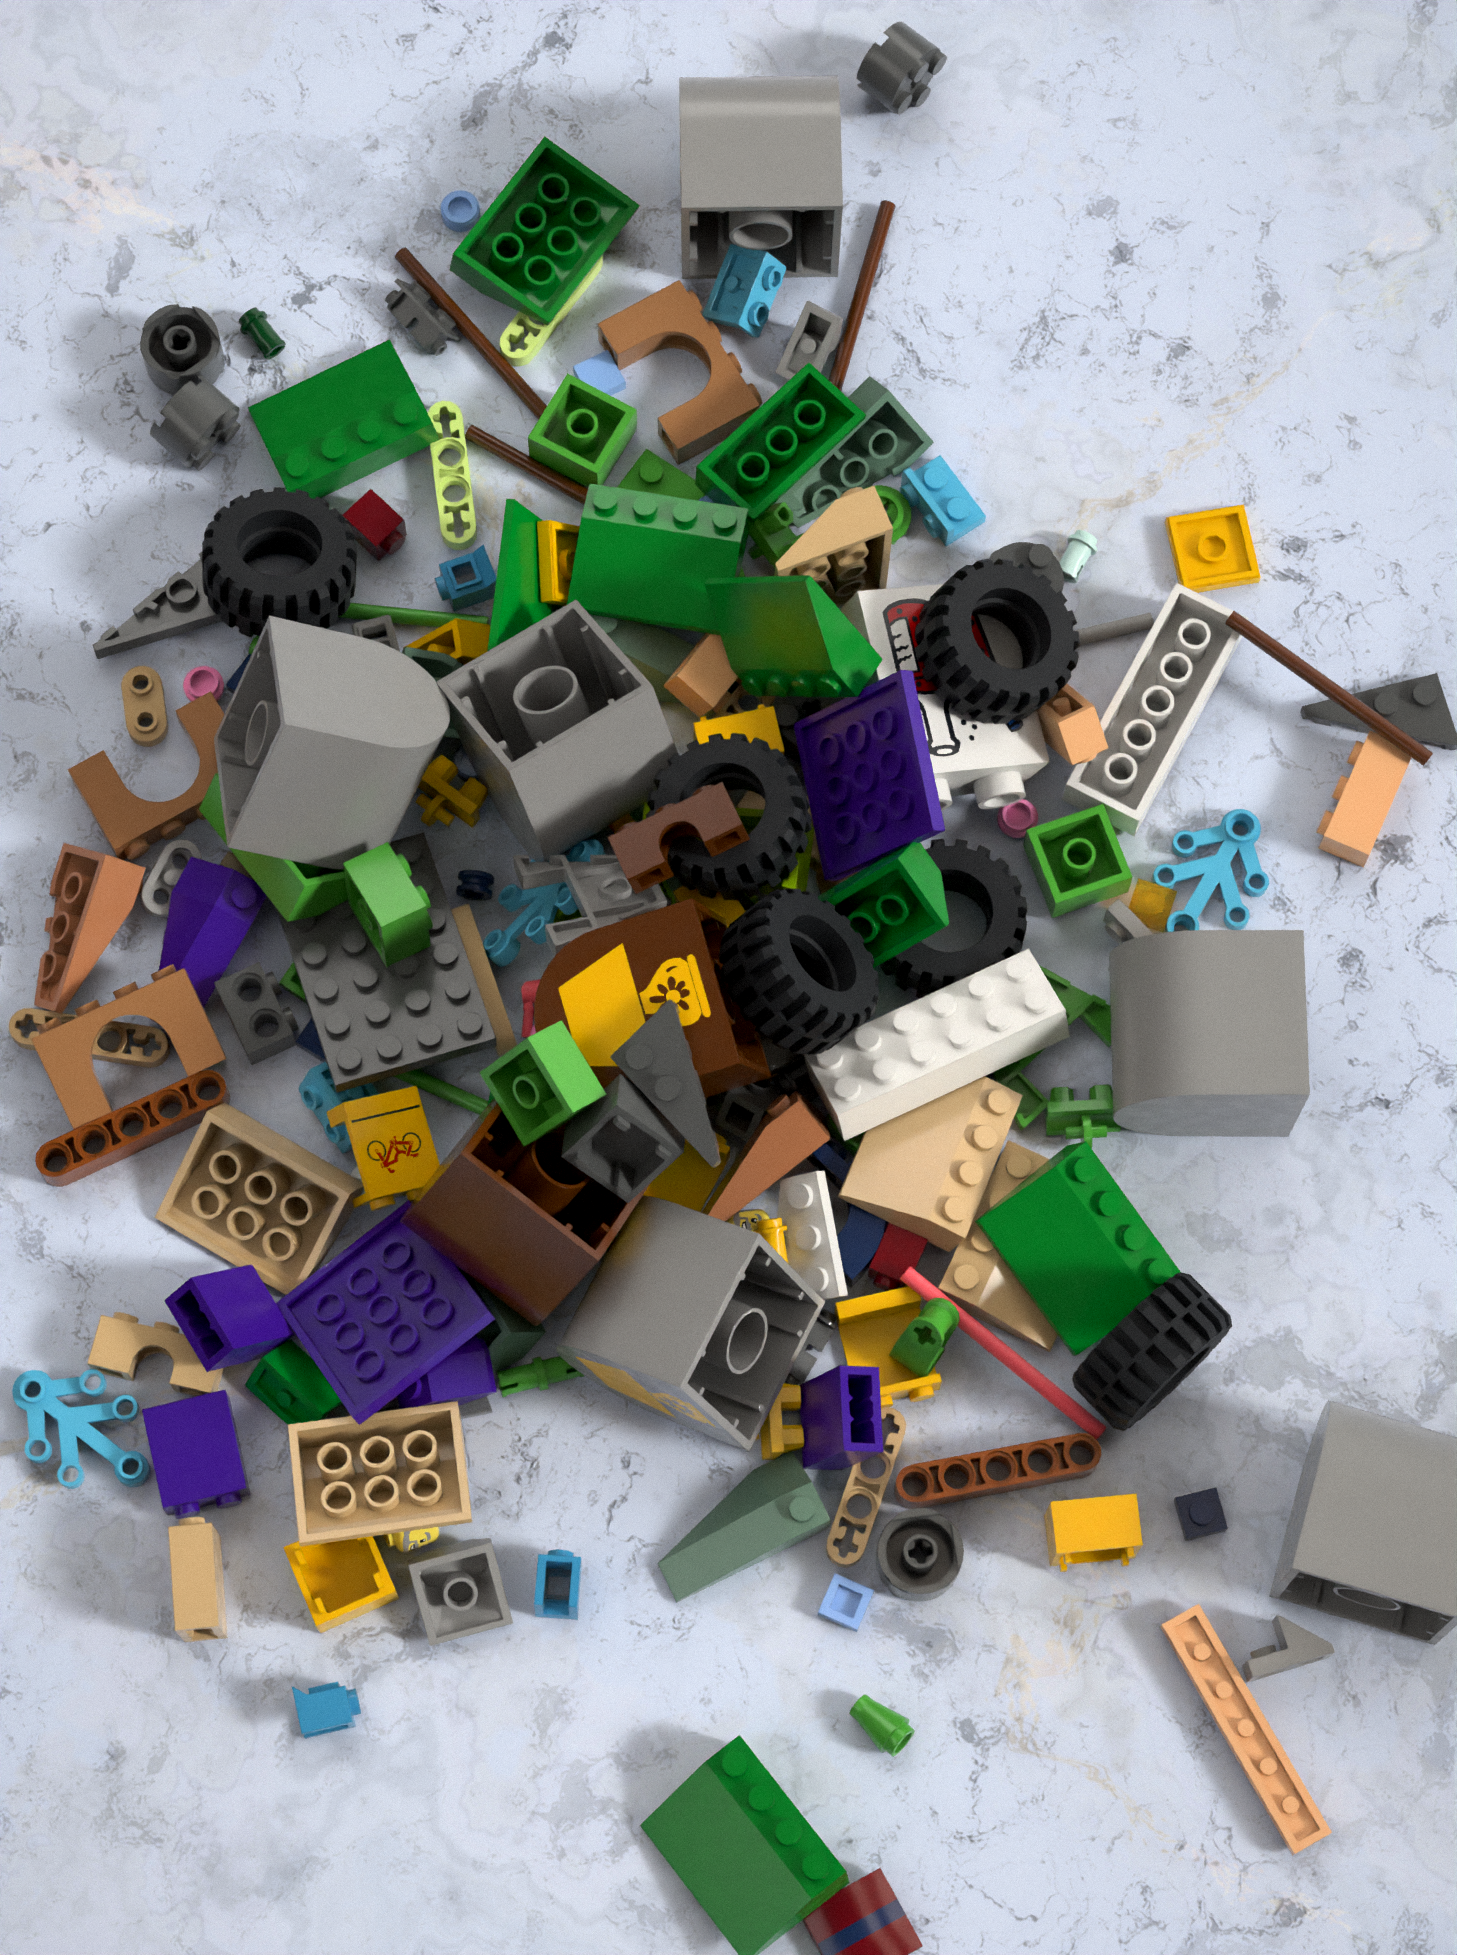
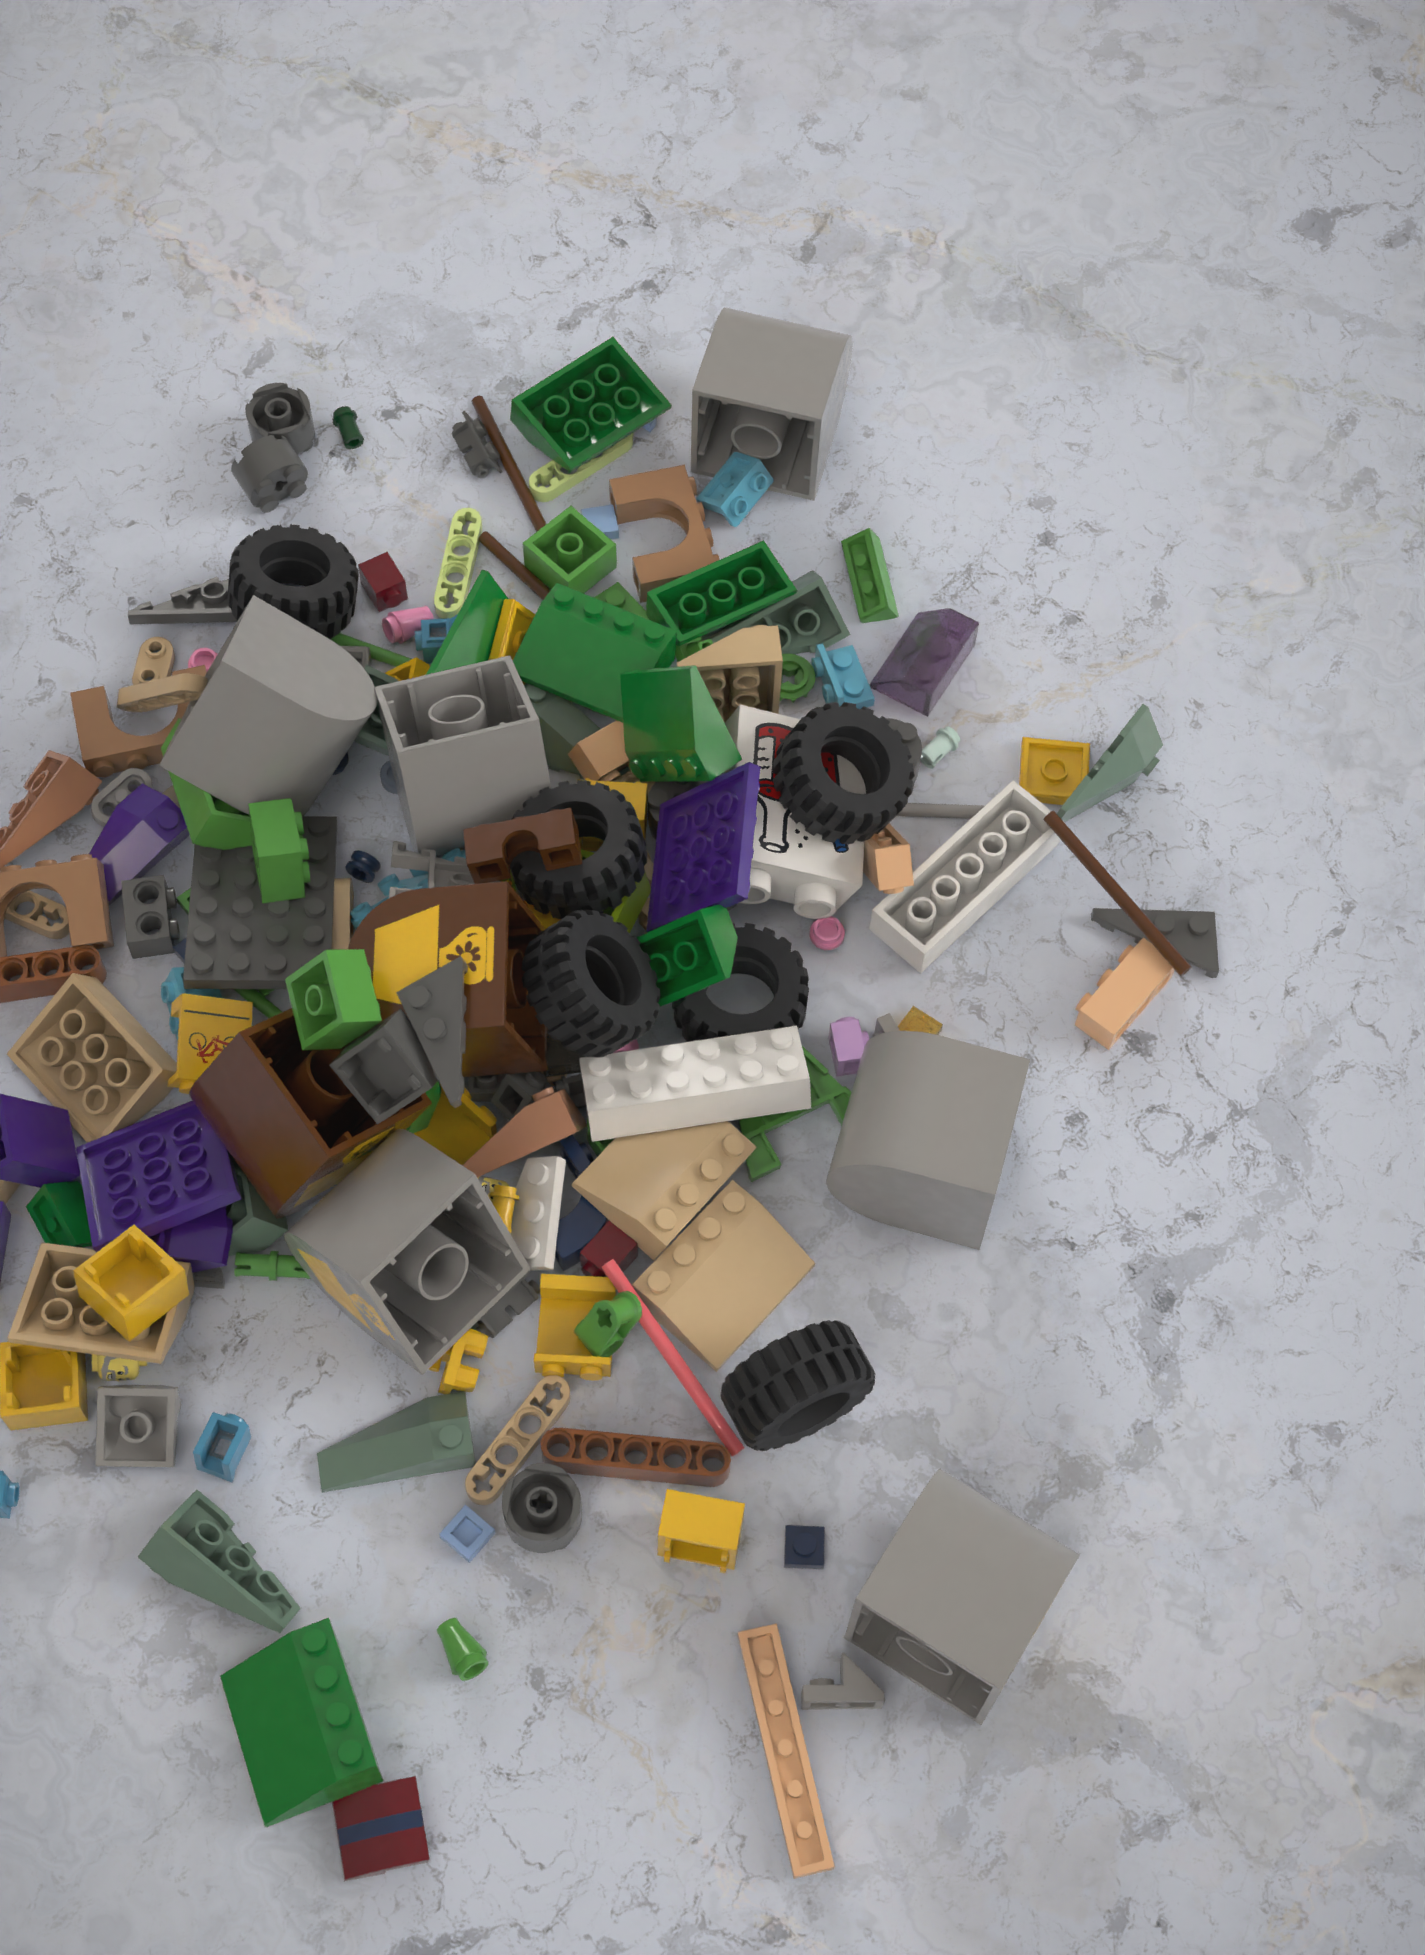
camera: 15 degrees right, 10 degrees down
(180, 744) = (161, 692): none -> tan beam
(344, 422) = (387, 505): green slope -> none
(411, 1445) = (131, 1282): none -> yellow container
(419, 570) = (402, 624): none -> bright pink cone
(460, 211) = (530, 377): light blue tile -> none
(462, 803) = (361, 793): yellow hips -> none
(584, 1710) = (207, 1559): none -> sand green wedge
(811, 341) = (779, 530): light grey slope -> none
(841, 1418) = (511, 1369): dark purple brick -> none
(861, 293) = (829, 514): reddish brown piece -> none
(900, 68) = (909, 360): dark grey brick -> none
(932, 361) = (869, 577): none -> bright green slope
(1028, 449) = (926, 658): none -> clear purple slope
(1077, 860) = (864, 975): bright green brick -> none
(1077, 1246) = (760, 1276): green slope -> none
(1081, 1117) = (801, 1181): bright green hips -> none
(1082, 946) = (846, 1045): none -> lavender brick
(1216, 869) = (983, 1016): medium azure plant -> none
(1289, 516) = (1119, 766): none -> sand green wedge

